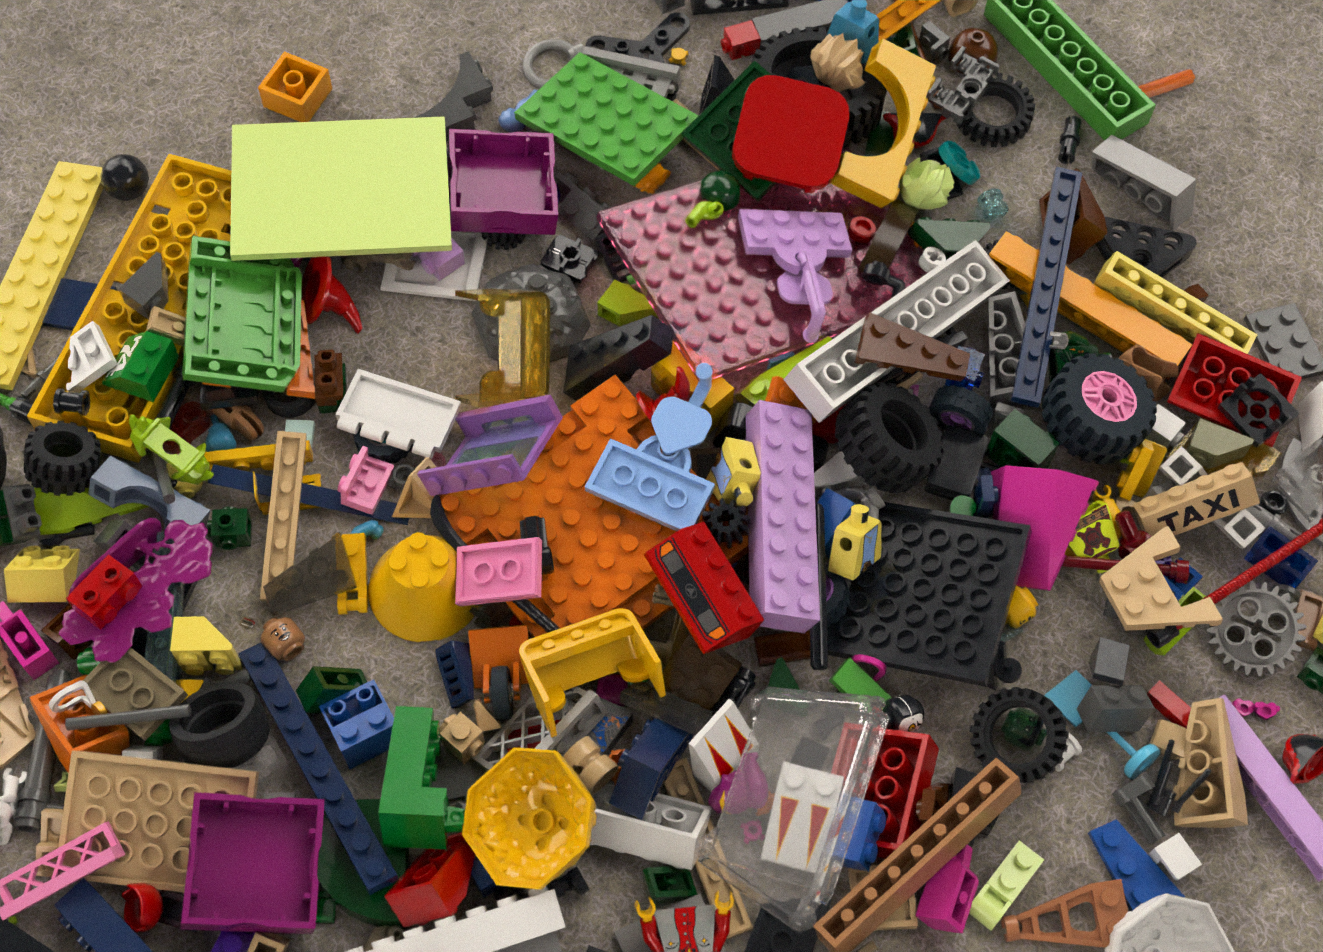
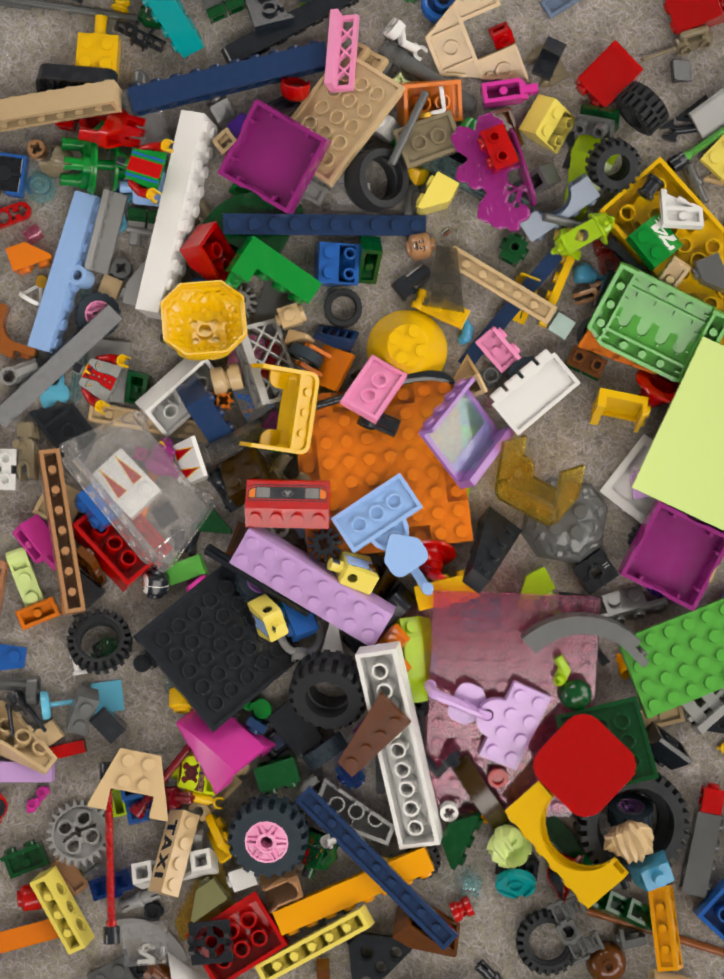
camera: 125 degrees right, 25 degrees up
(338, 625) = (411, 282): none -> black piece
(357, 301) = (620, 406): none -> yellow panel
(414, 665) = (347, 293): none -> black tyre
(641, 214) = (579, 623): none -> dark grey arch
(1023, 202) = (461, 909): none -> red wheel
(1038, 838) = (38, 613): none -> orange slope

